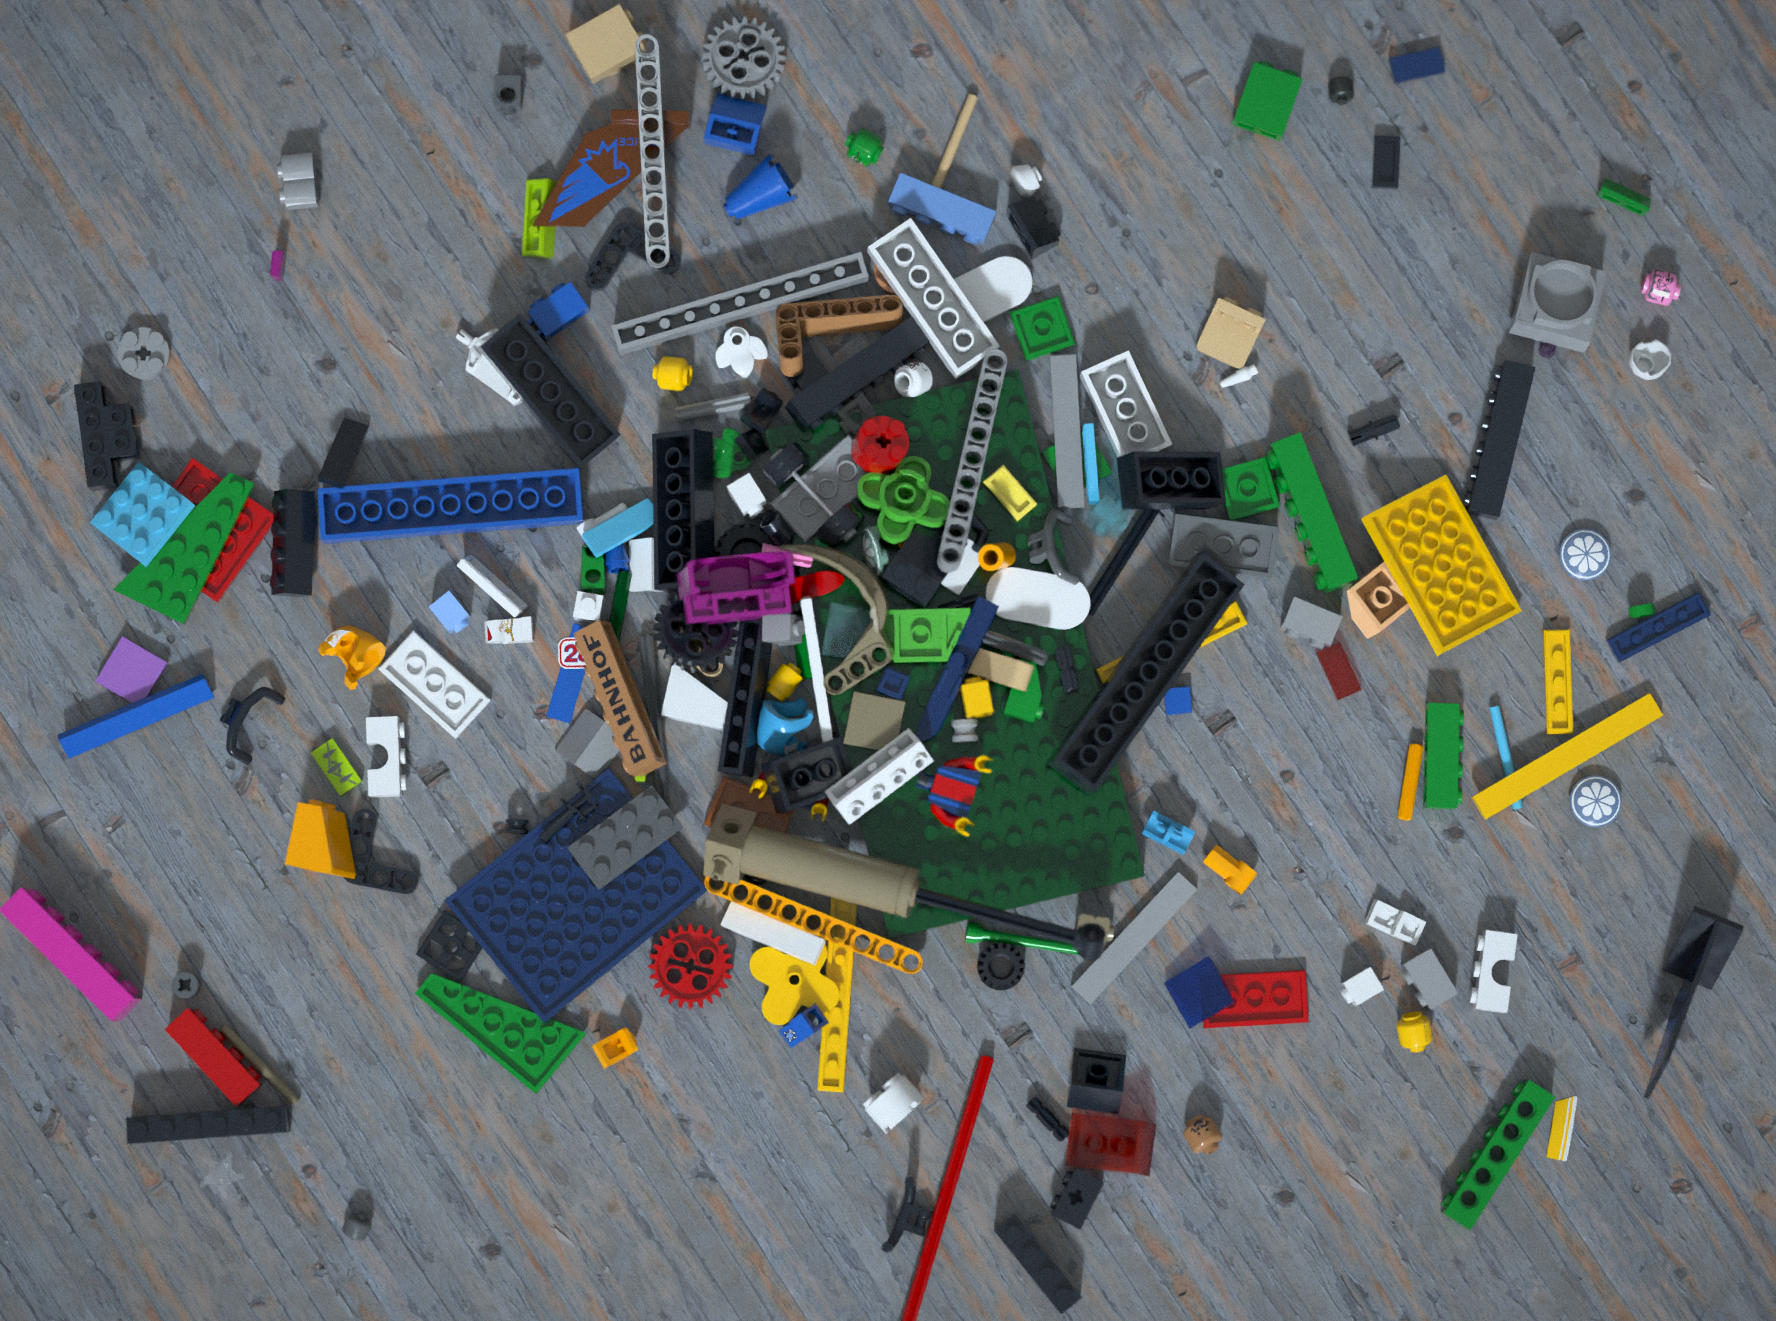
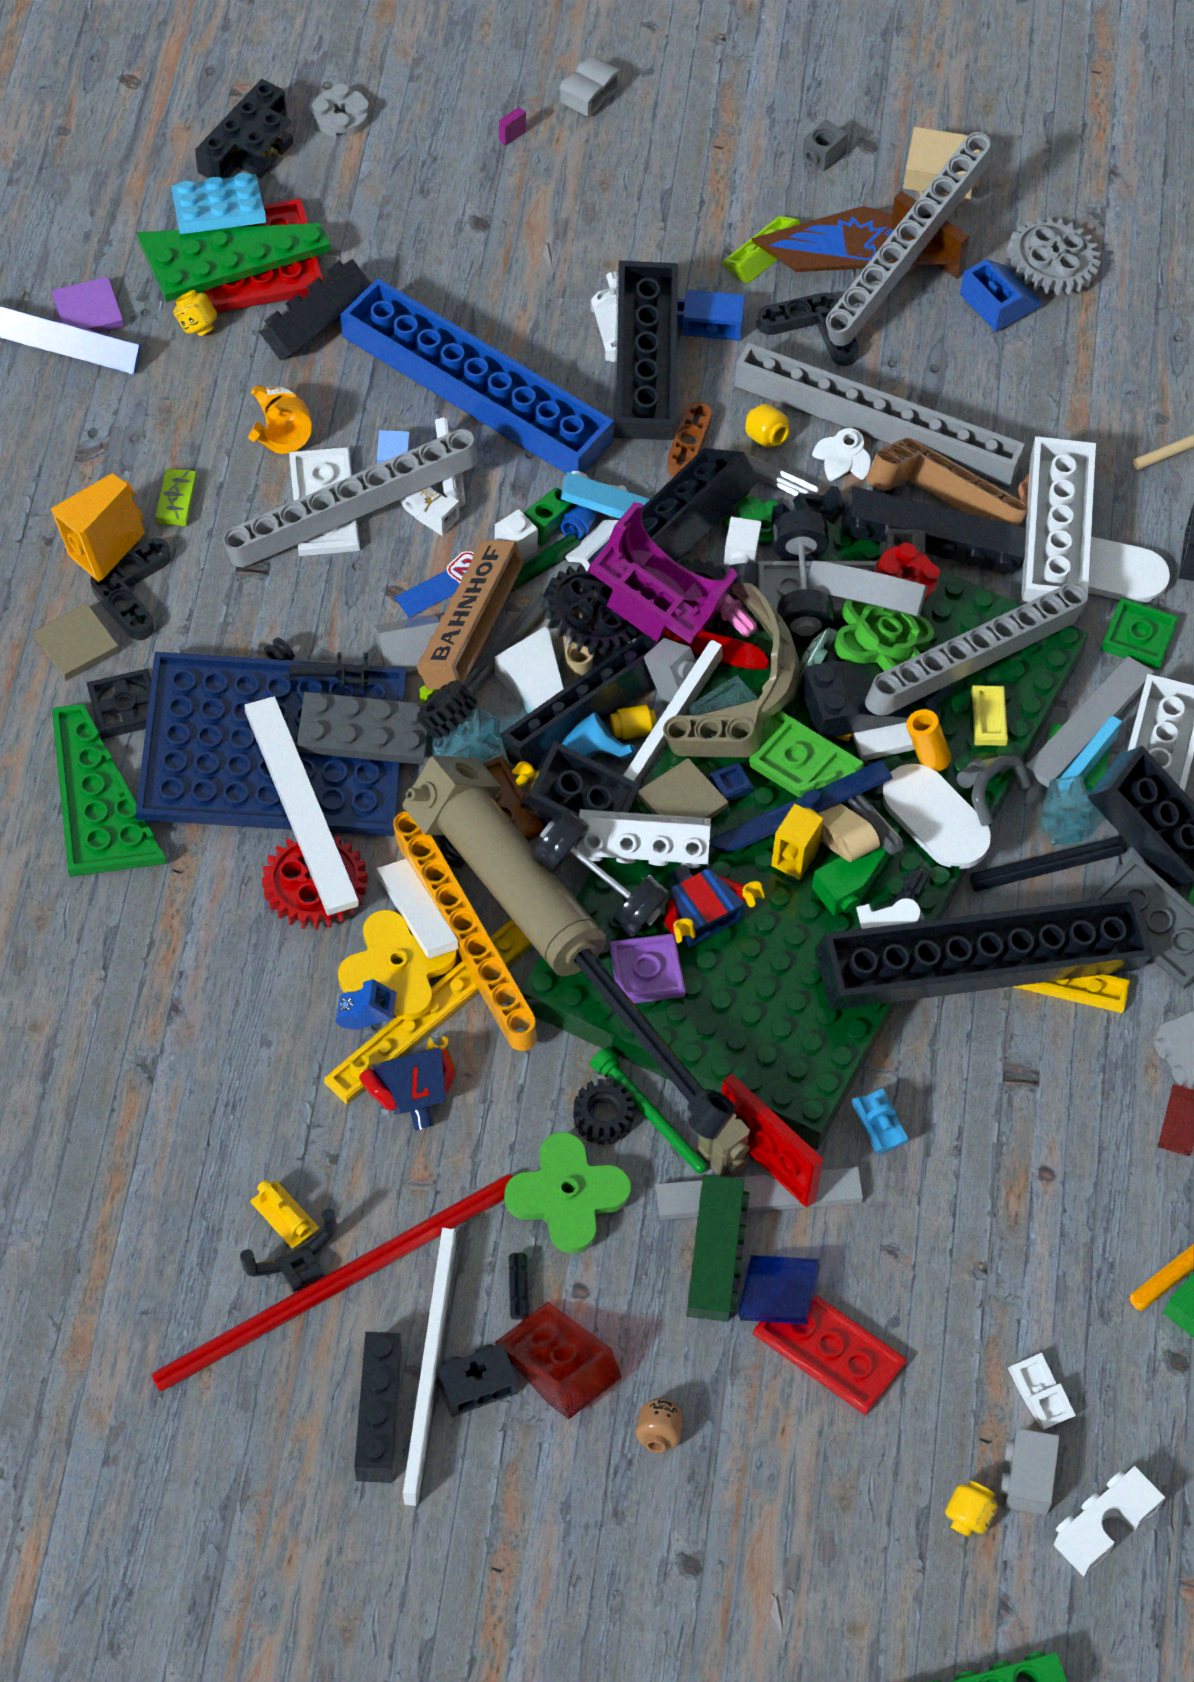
camera: 45 degrees right, 25 degrees down
(214, 617) = (195, 313): none -> yellow head
(236, 715) = (143, 391): black piece -> none
(343, 453) = (425, 276): black tile -> none
(378, 930) = (76, 641): none -> dark tan tile
(389, 779) = (204, 532): white arch -> none
(452, 686) = (351, 498): none -> light grey beam
(614, 411) = (687, 428): none -> dark orange beam
(615, 1047) = (178, 891): light orange bracket -> none
(639, 928) = (301, 806): none -> white tile
(673, 786) = (446, 709): none -> black tyre
(700, 793) = (475, 738): none -> clear light blue brick
(760, 190) = (977, 349): blue cone -> none
(843, 834) = (560, 841): none -> black axle
(864, 147) = (1101, 387): green head -> none
(868, 480) = (867, 587): none -> light grey slope
(874, 1194) = (283, 1213): none -> yellow hinge
(875, 1051) = (410, 1081): none -> dark blue torso
(893, 1104) = (383, 1138): white brick -> none
(913, 379) = (981, 569): white head -> none
(942, 209) = (1132, 479): medium blue brick -> none
(954, 860) = (648, 968): none -> medium lavender tile
(964, 730) = (762, 865): light grey wheel -> none
(1014, 1055) = (570, 1214): none -> bright green plant
(1043, 1213) = (429, 1371): none -> white tile
(1076, 706) = (900, 913): none -> white leg
(1096, 1081) = (598, 1288): black slope -> none
(1120, 908) = (776, 1144): none -> red tile
(1143, 1000) = (716, 1247): none -> dark green brick
(1178, 701) = (994, 1022): blue tile -> none
(1235, 873) = (913, 1212): light orange piece -> none
(1361, 987) = (952, 1420): white brick -> none

